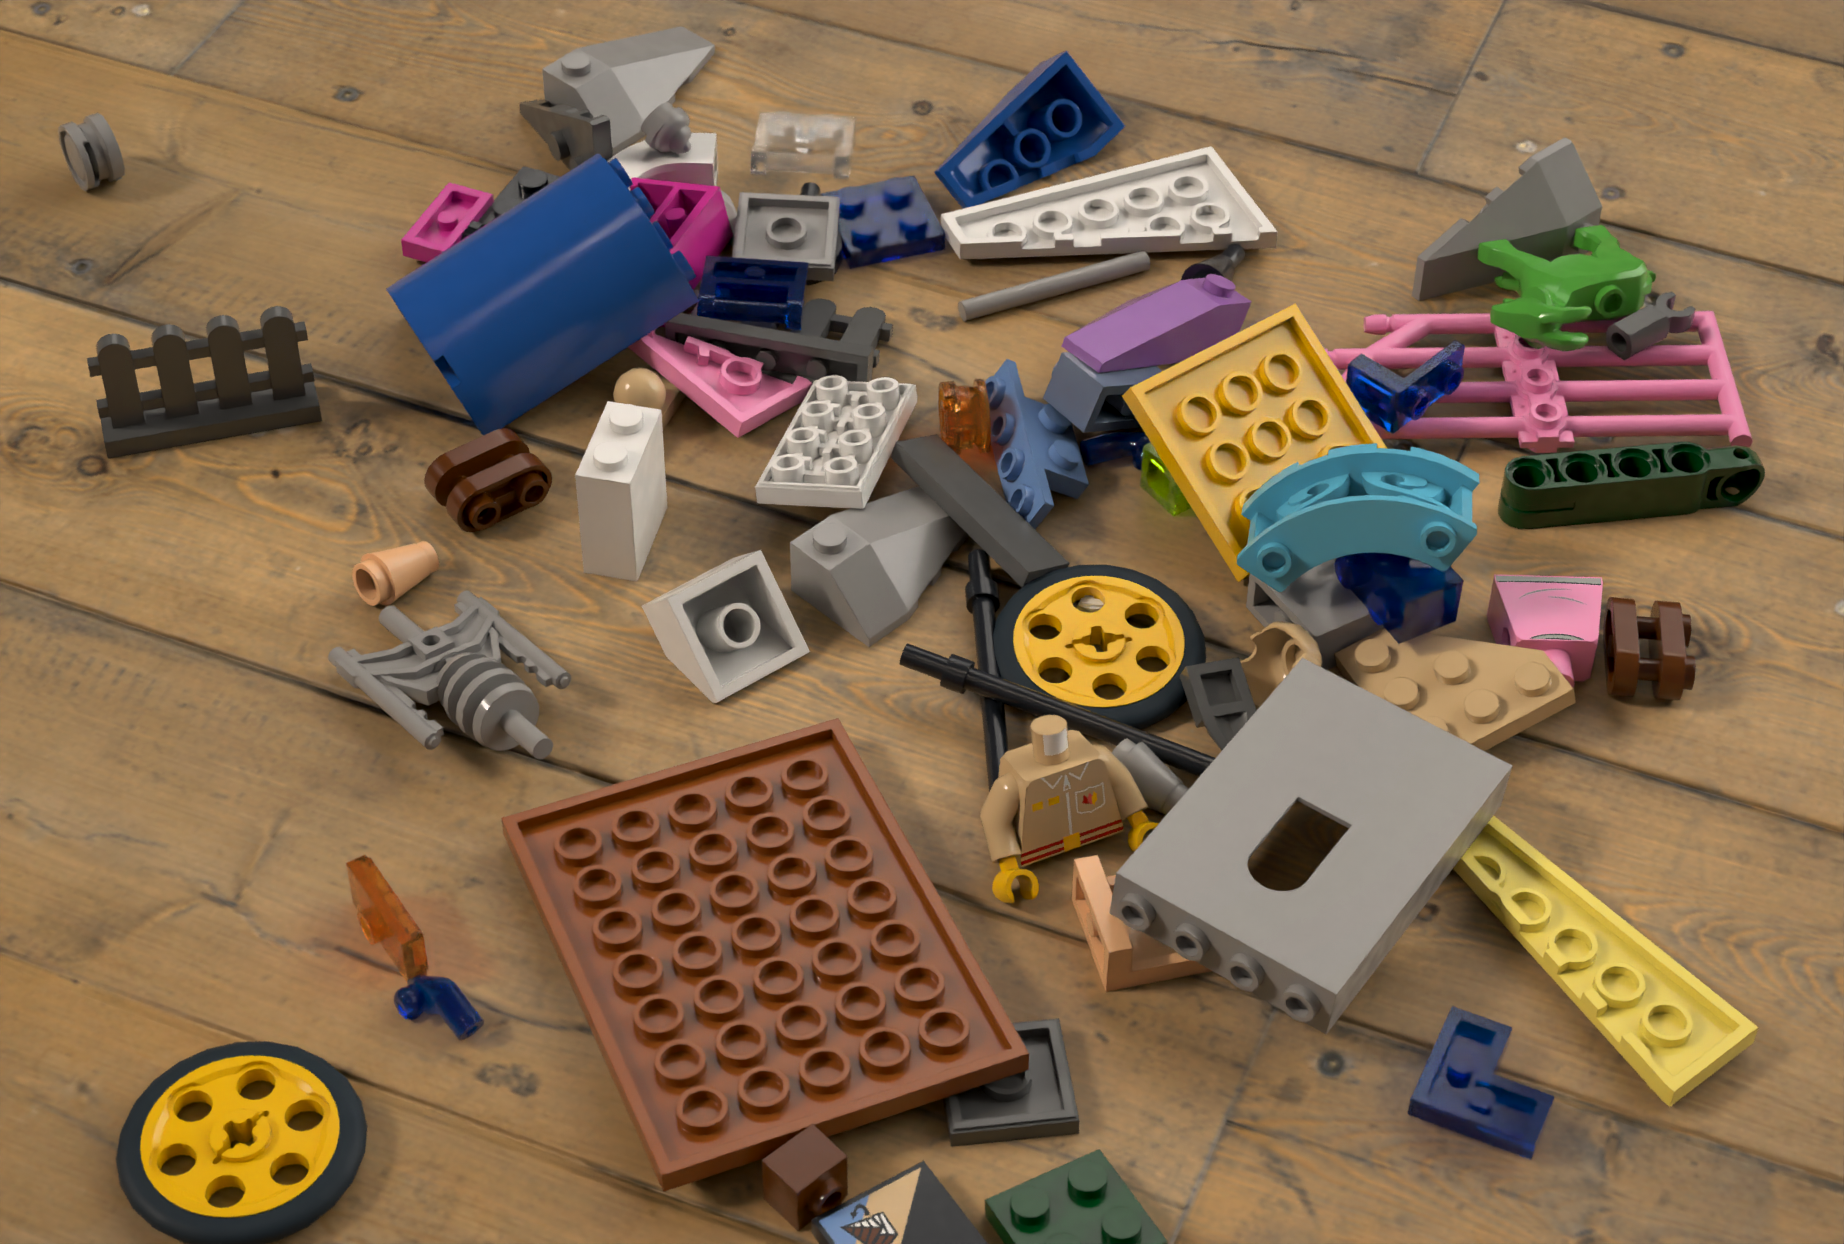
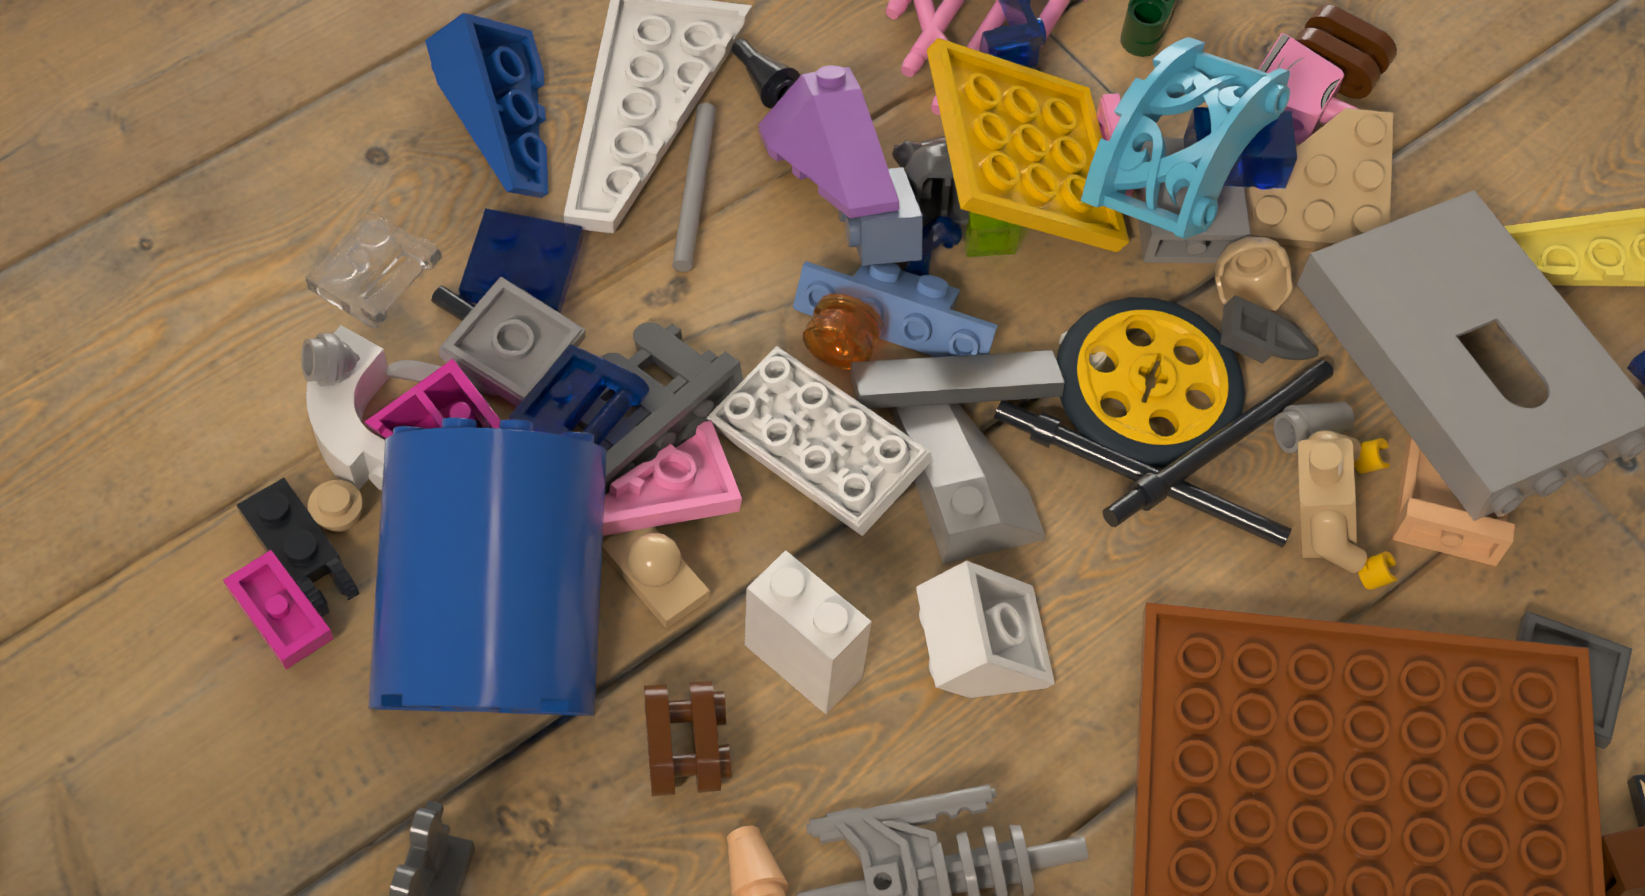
camera: 65 degrees left, 15 degrees up
(569, 132) = (237, 445): dark grey wing -> none
(627, 78) = (177, 365): light grey wedge -> none

